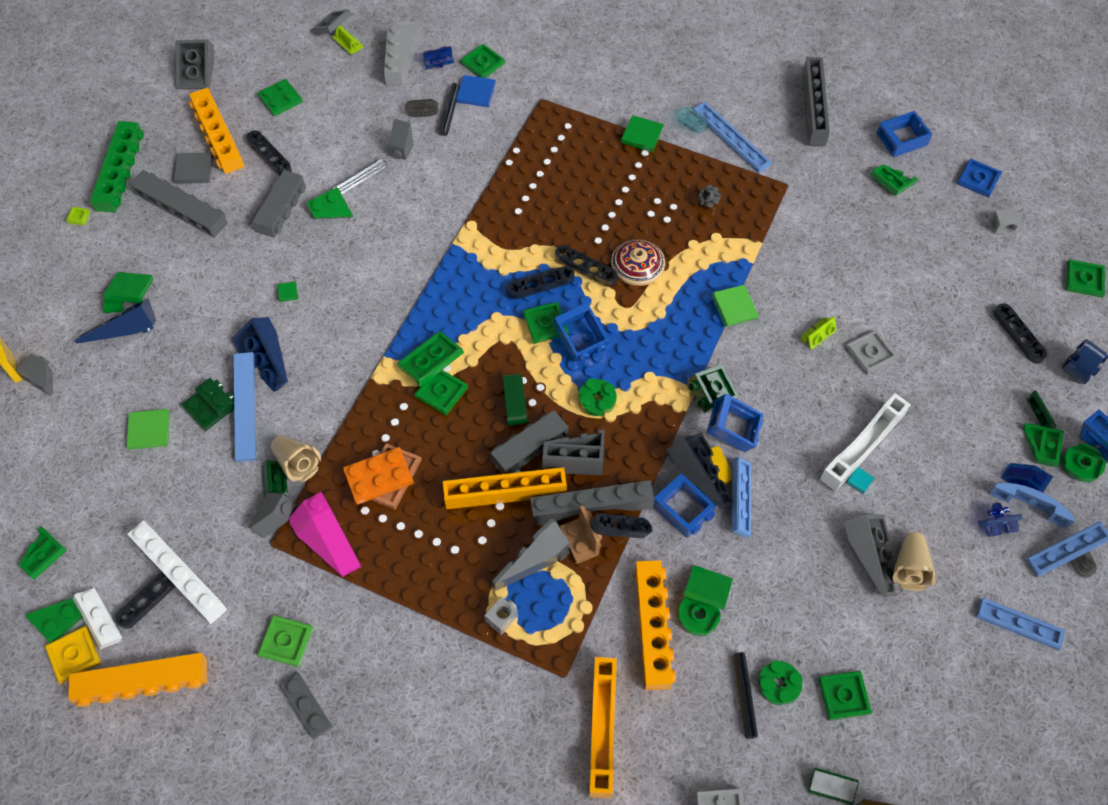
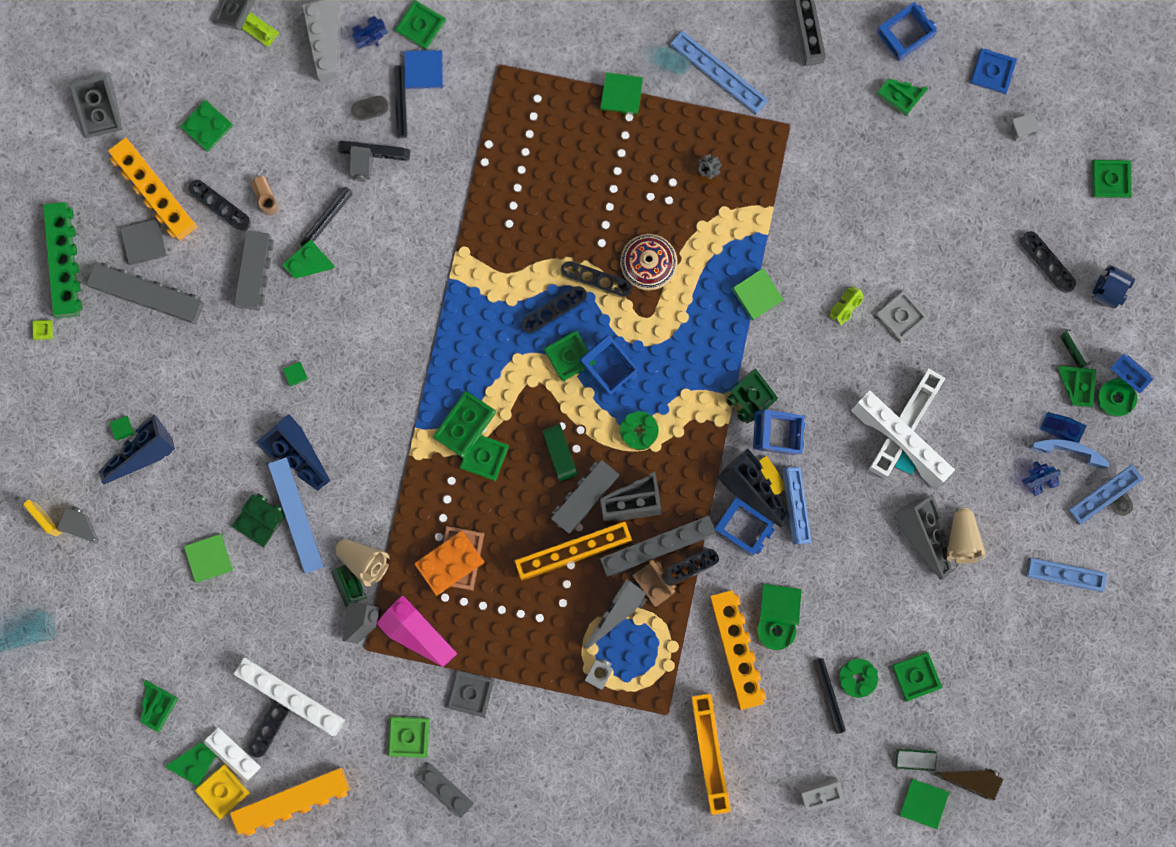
camera: 10 degrees left, 20 degrees up
(128, 287) = (130, 407): green tile -> none
(310, 152) = (264, 194): none -> medium nougat piece
(363, 611) = (470, 694): none -> dark grey tile
(431, 141) = (378, 151): none -> black beam
(885, 484) = (927, 461): none -> white arch

